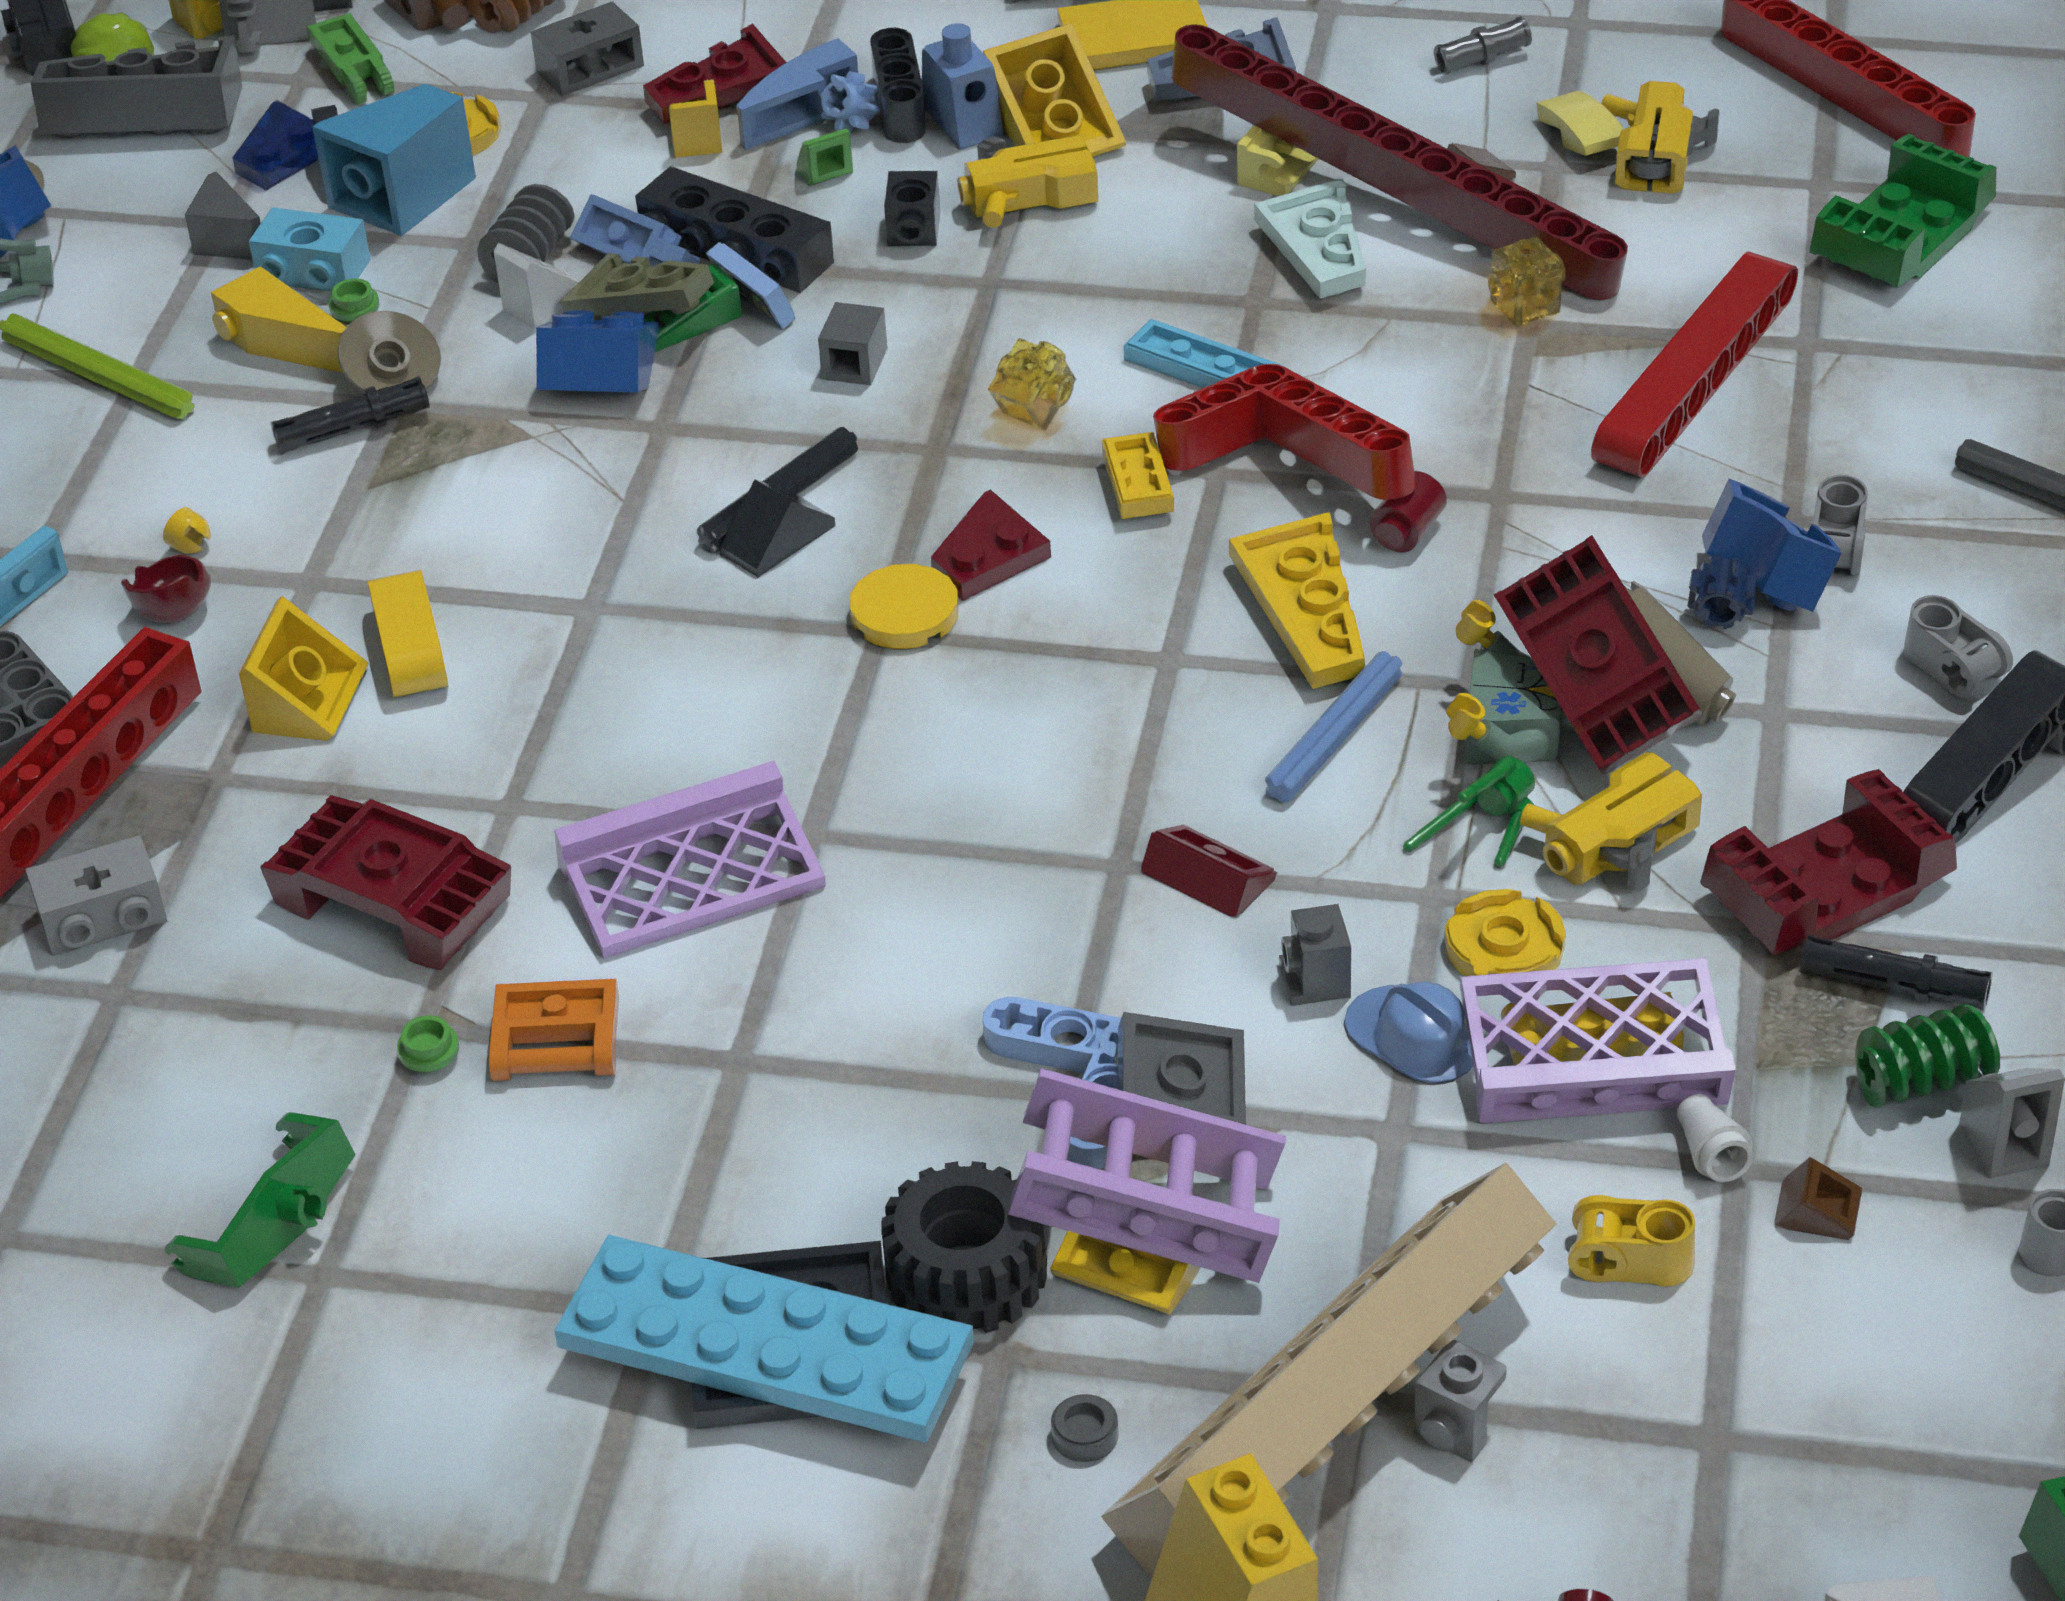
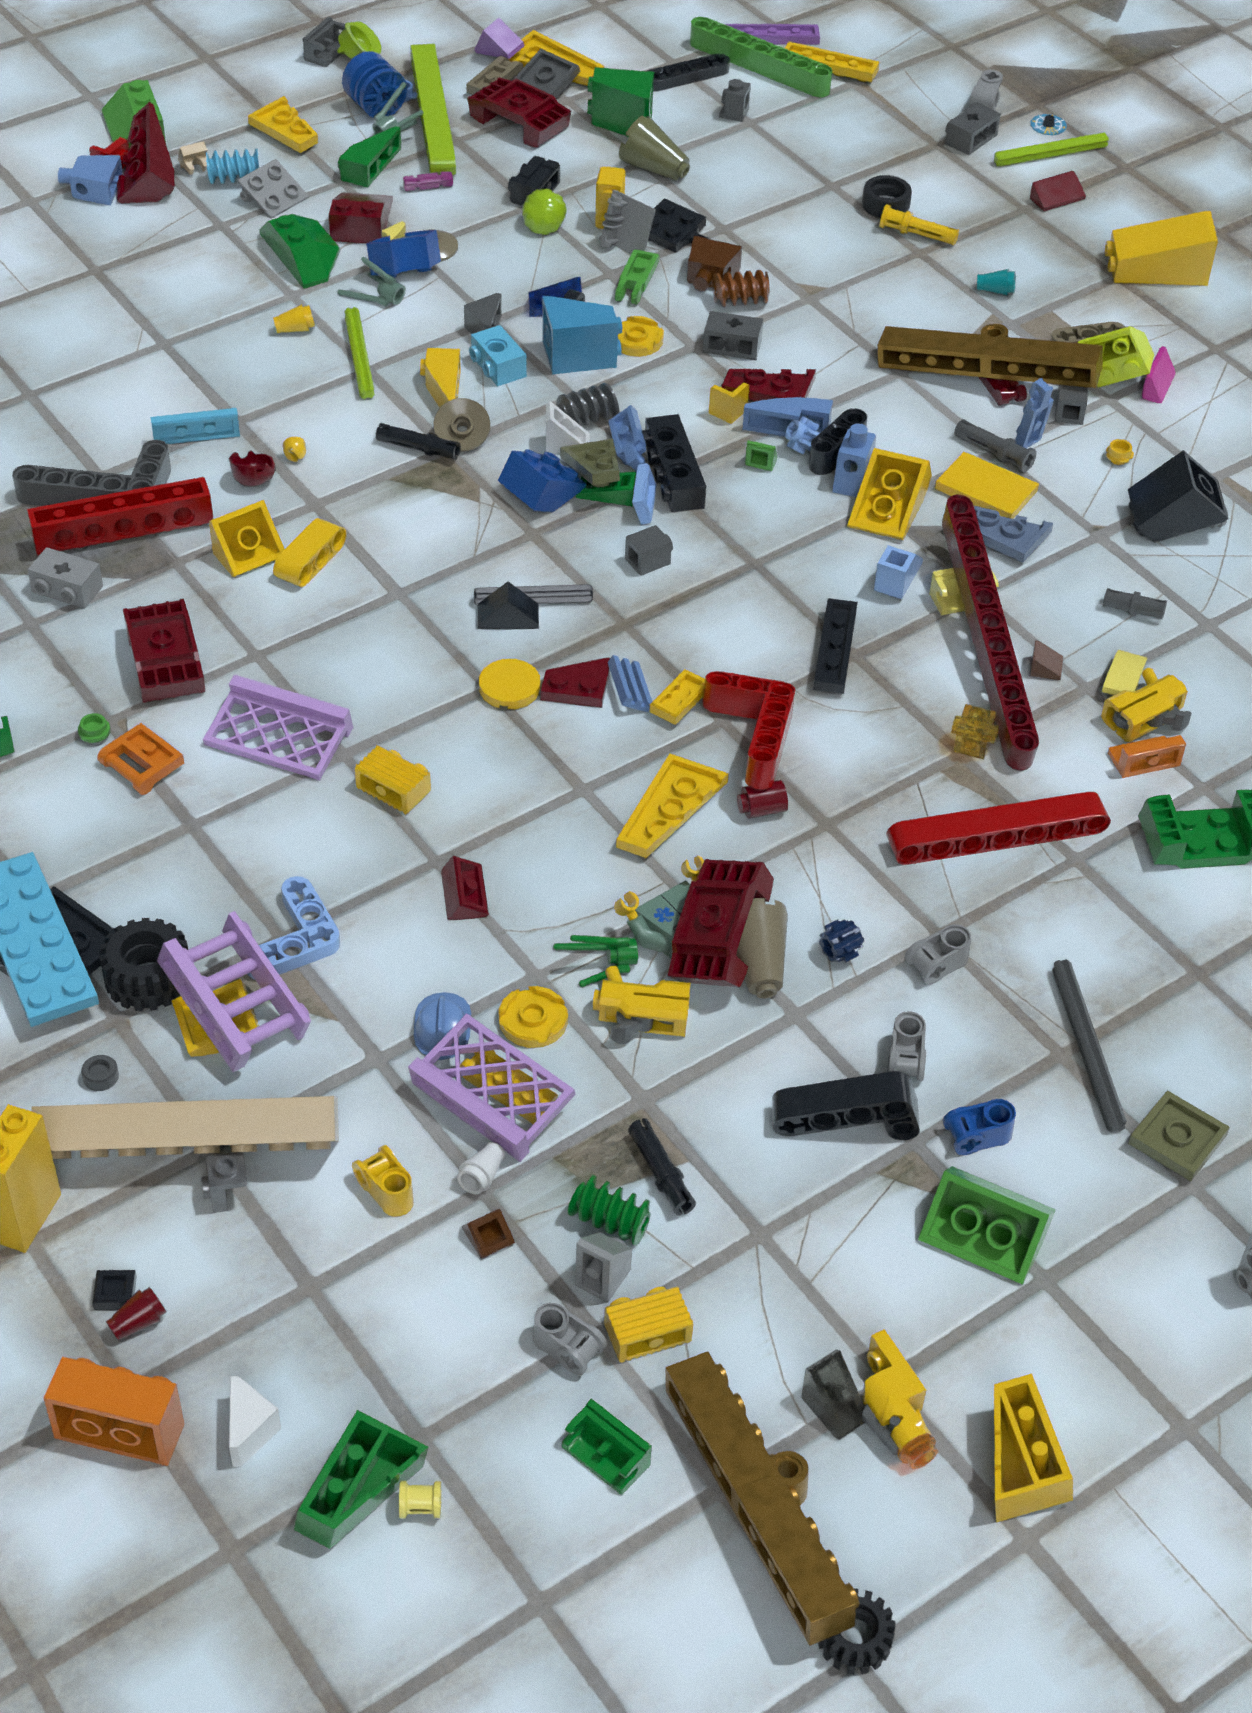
camera: 40 degrees right, 5 degrees up
(139, 91) = (529, 237): dark grey wedge -> none
(353, 299) = (488, 390): bright green plate -> none
(912, 208) = (760, 504): black brick -> none
(937, 808) = (392, 779): none -> yellow brick
(1028, 176) = (830, 523): yellow piece -> none
(1032, 382) = (689, 621): clear yellow brick -> none
(1057, 501) = (630, 679): none -> medium blue tile
(1183, 1064) = (320, 965): dark grey tile -> none
(1186, 174) = (896, 571): none -> light blue slope
(1187, 355) = (787, 663): medium azure tile -> none
(1231, 300) = (835, 646): none -> black plate
(1316, 236) = (919, 642): light aqua wing -> none
(1316, 956) = (436, 955): dark grey brick -> none
(1333, 727) = (599, 870): medium blue axle -> none
(1724, 187) = (1147, 755): none -> orange panel
(1786, 559) = (887, 934): blue brick -> none
(1834, 873) = (700, 1101): dark red plate -> none

